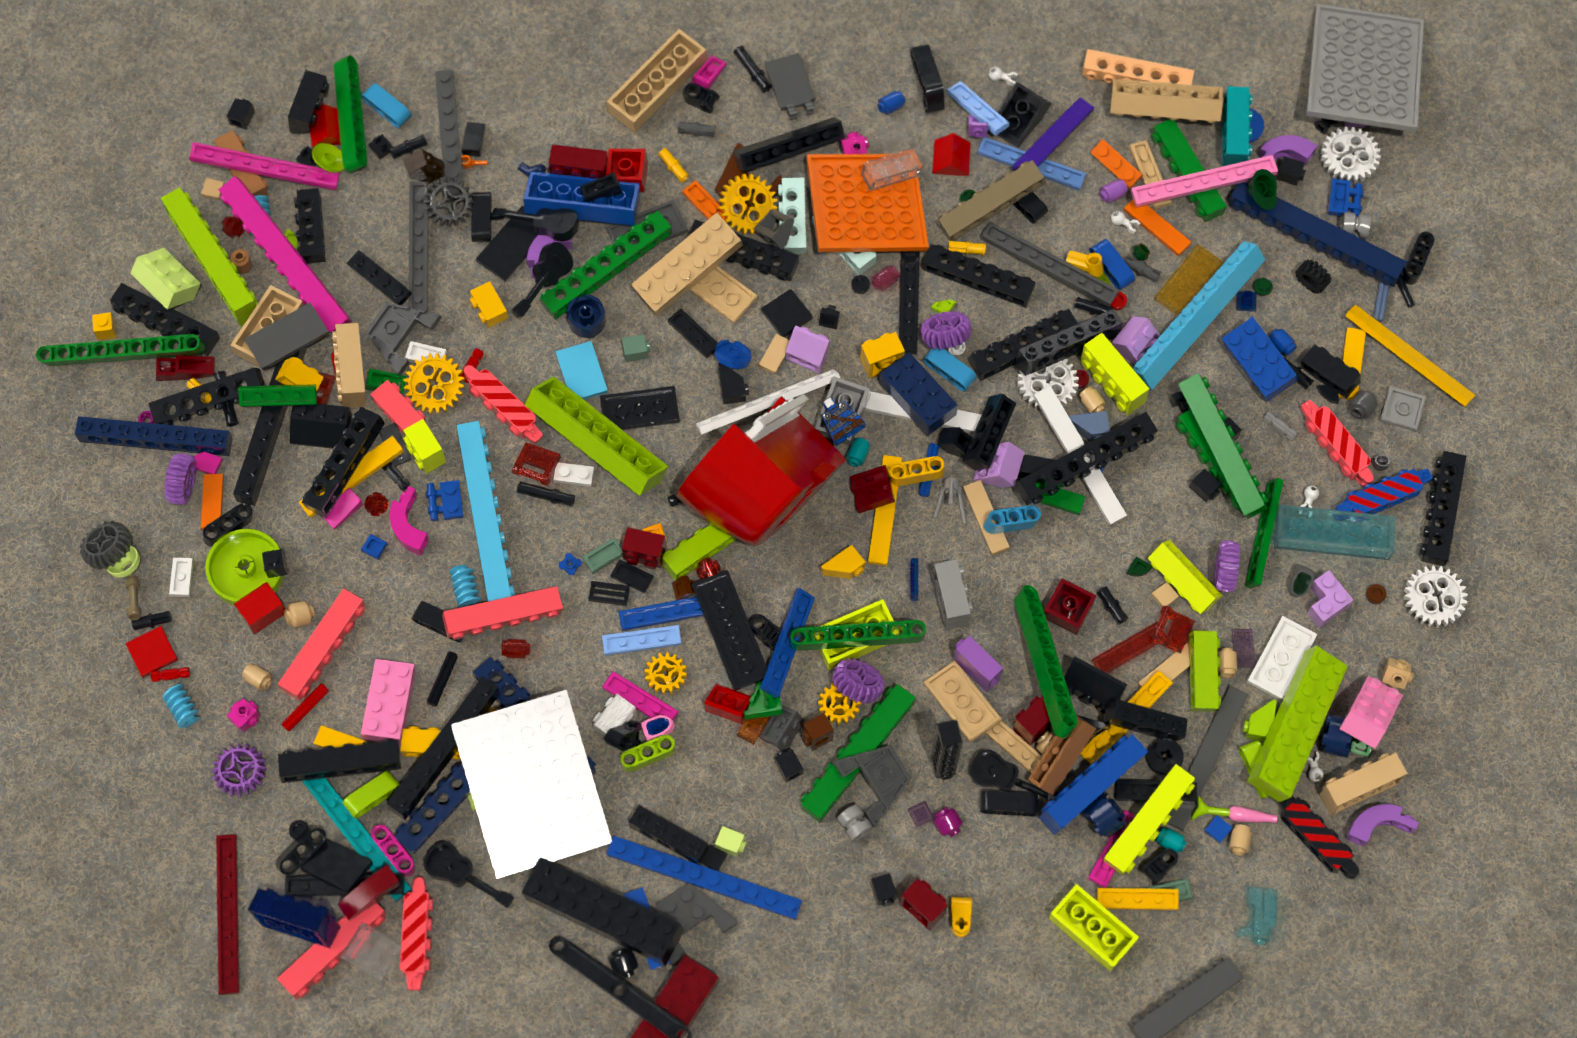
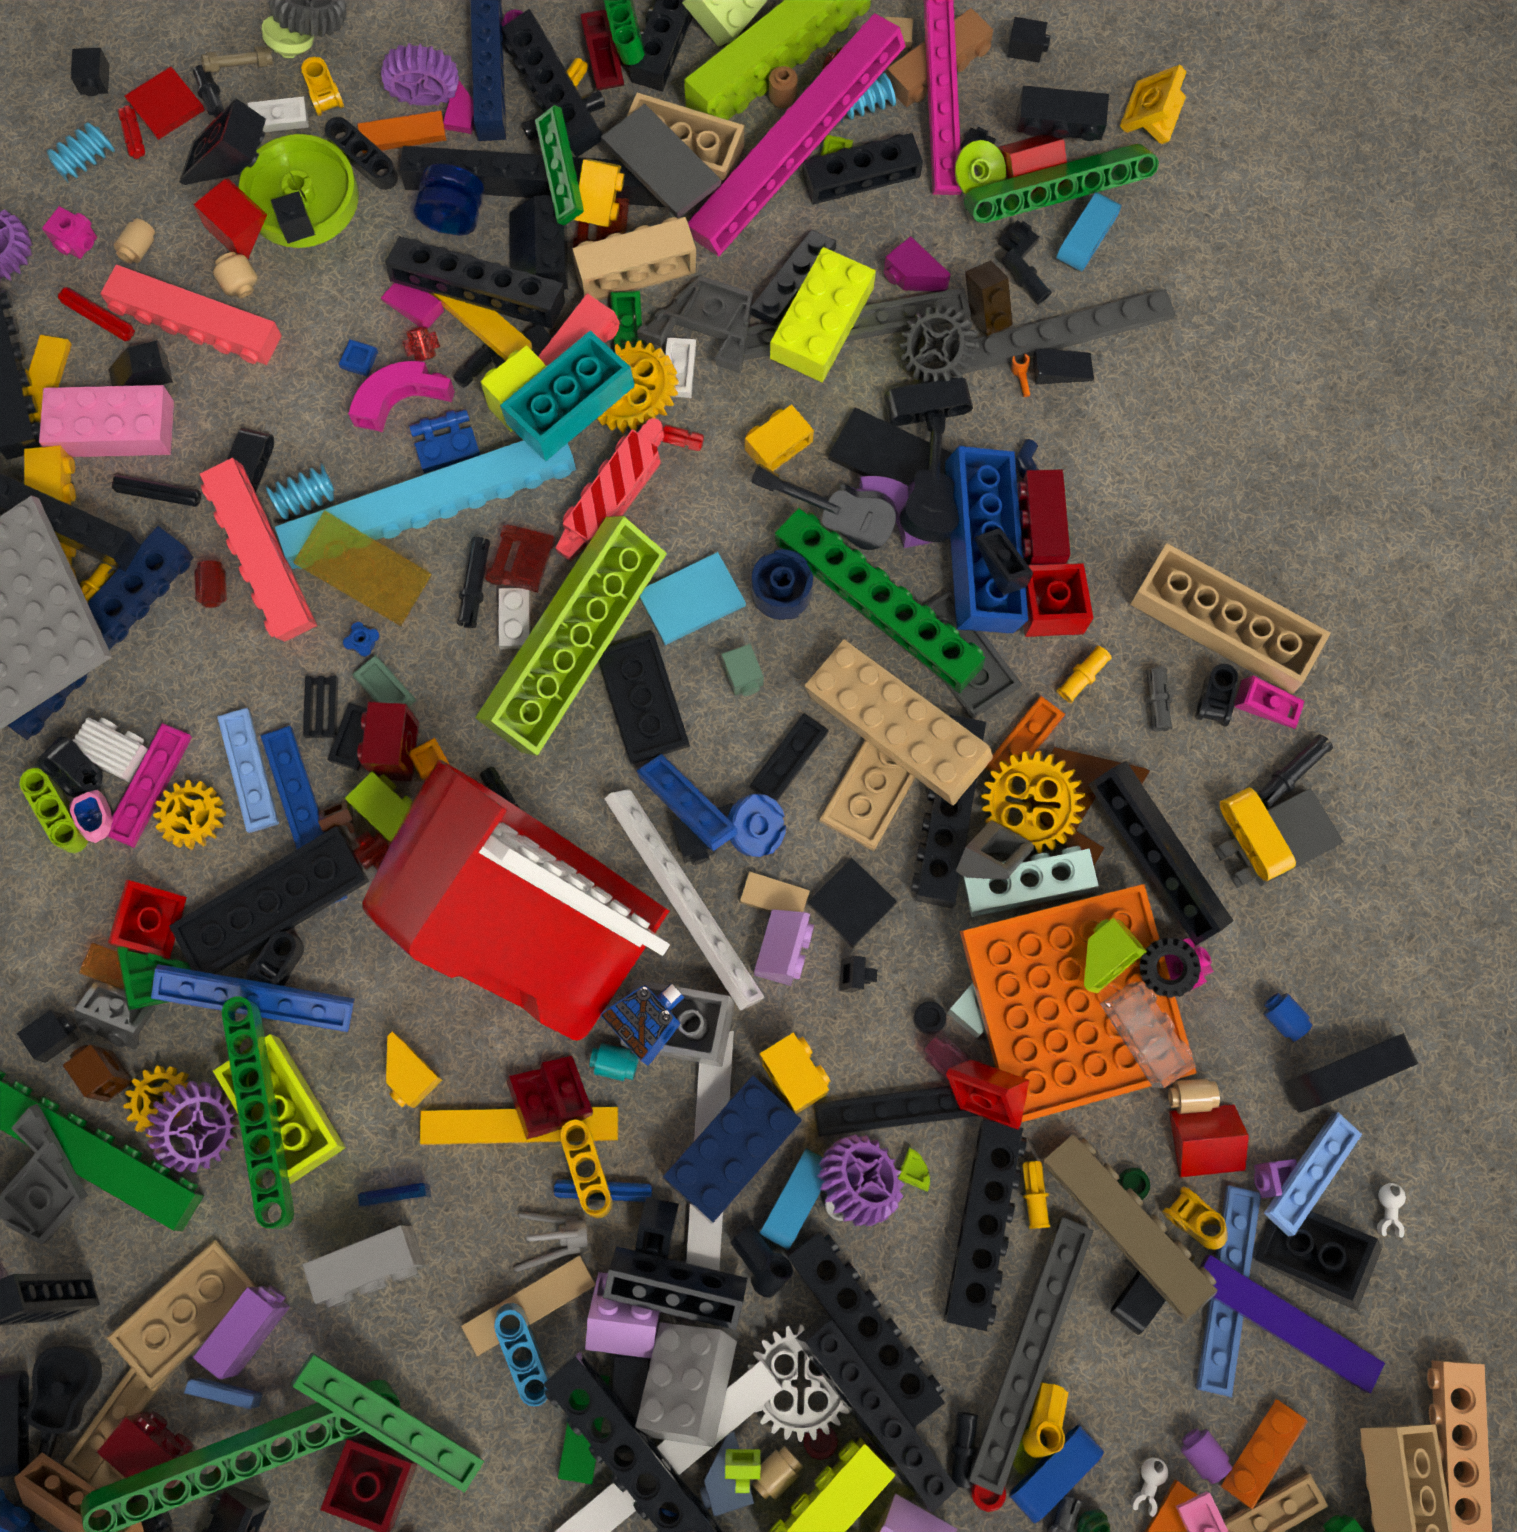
camera: 80 degrees right, 5 degrees up
(117, 695) = (90, 71): none -> black brick
(169, 546) = (321, 88): none -> yellow piece
(205, 608) = (225, 145): none -> black slope
(279, 471) = (449, 199): none -> clear blue wheel
(306, 49) = (1156, 104): none -> yellow bracket
(354, 681) = (141, 366): none -> black slope
(389, 207) = (915, 269): none -> magenta slope
(414, 261) = (822, 314): none -> neon yellow brick
(442, 412) = (568, 395): none -> teal brick
(526, 553) = (362, 568): none -> clear yellow tile
(712, 387) = (687, 802): none -> blue tile
(787, 93) = (1257, 834): none -> yellow beam
(844, 175) = (1109, 953): none -> lime slope
(846, 149) = (1175, 987): none -> black tyre
(910, 254) = (989, 1092): none -> red slope
(927, 157) = (1194, 1096): none -> tan brick
(986, 387) = (768, 1269): none -> black piece
(991, 169) = (1192, 1215): none -> yellow piece
(1009, 682) = (223, 1393): none -> medium blue tile
(1038, 587) = (387, 1422): none -> green plate
(1040, 433) = (686, 1384): none -> light grey brick
(1087, 410) = (742, 1466): none -> lime tile

